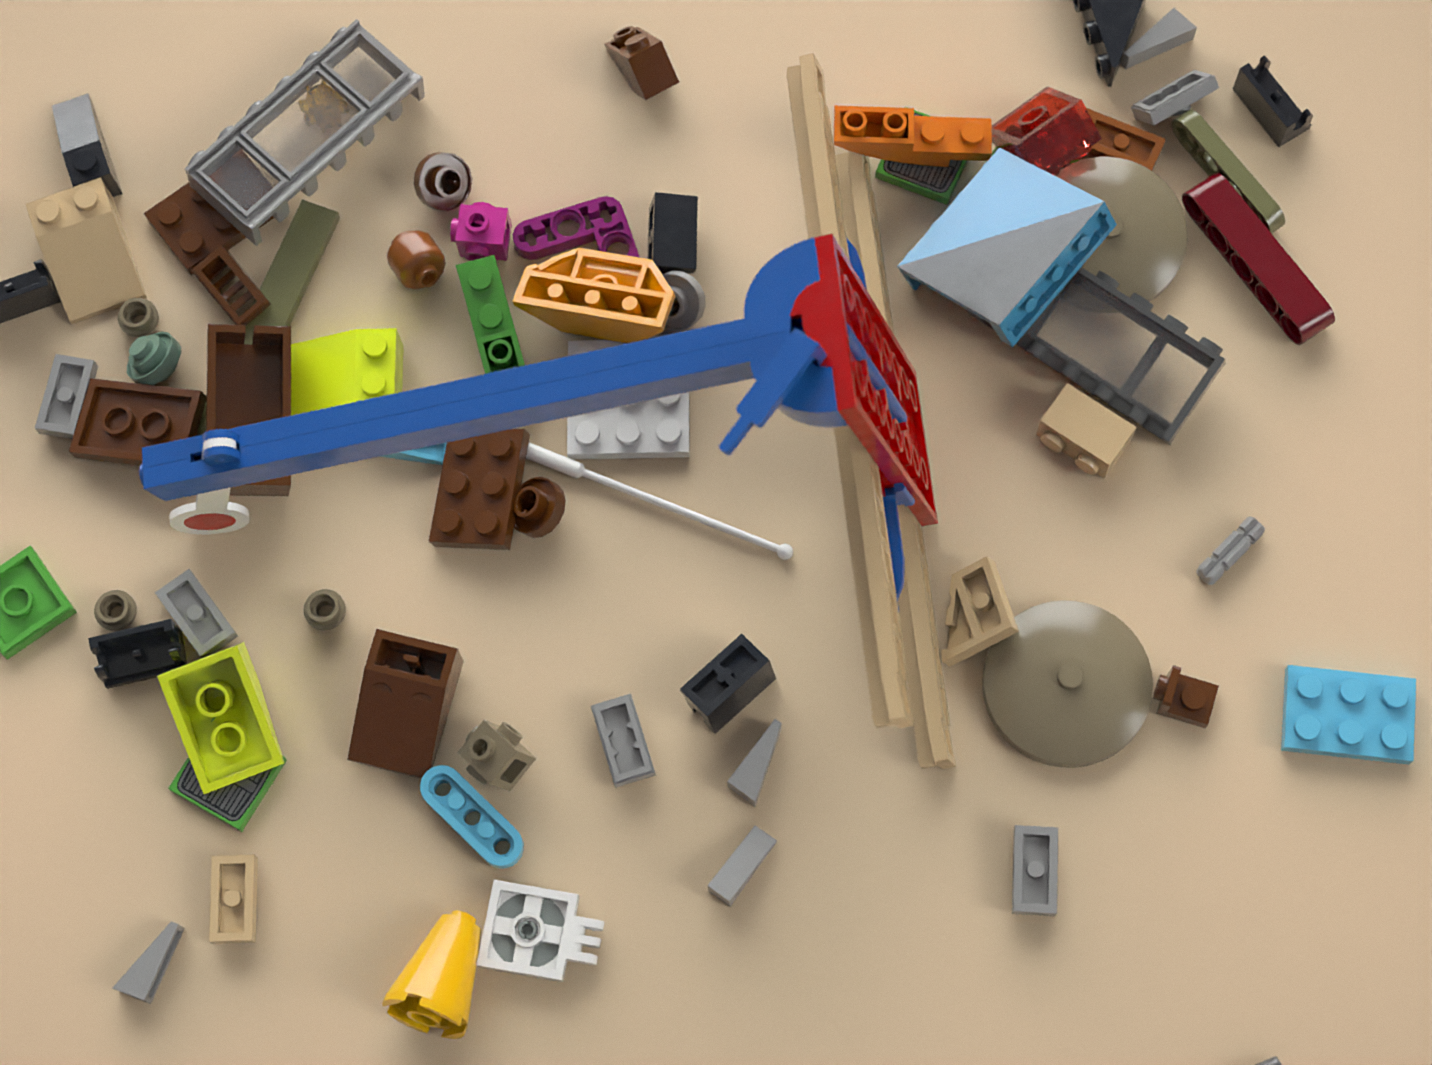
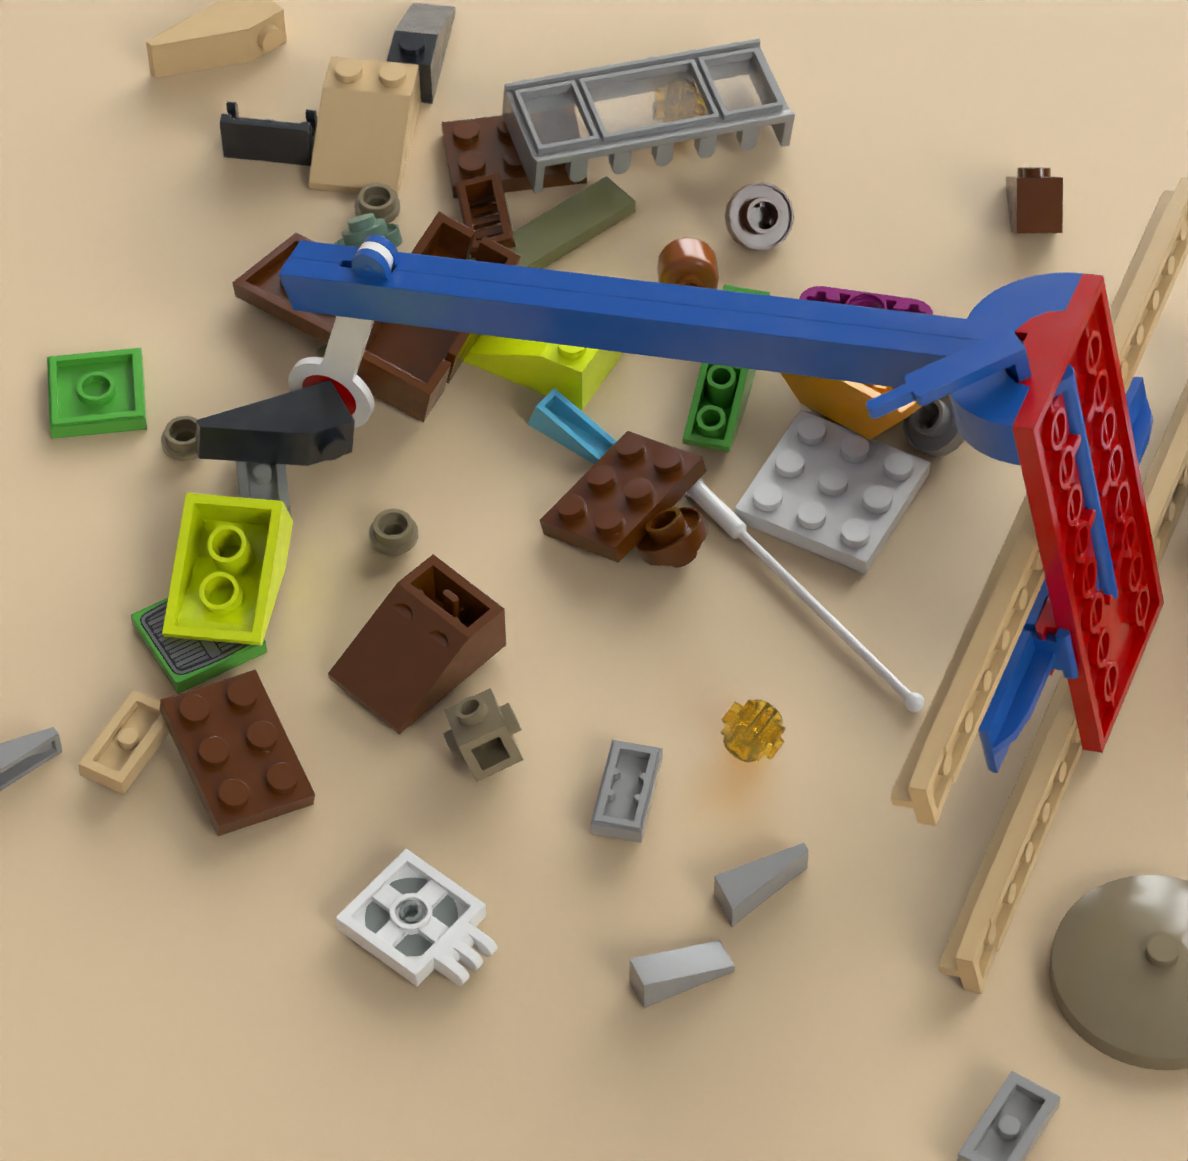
camera: 25 degrees right, 20 degrees down
(65, 395) = (260, 236): light grey plate -> none
(138, 653) = (172, 471): black hinge -> none
(196, 571) = (283, 429): none -> black slope
(320, 865) = (236, 752): none -> reddish brown plate
(439, 978) = (283, 909): yellow cone -> none
(464, 800) = (416, 770): medium azure plate -> none
(481, 231) = (772, 268): dark pink brick -> none
(687, 643) = (753, 730): none -> clear yellow gear
(728, 683) = (774, 789): black hinge -> none
(977, 612) = (1094, 850): tan wing -> none

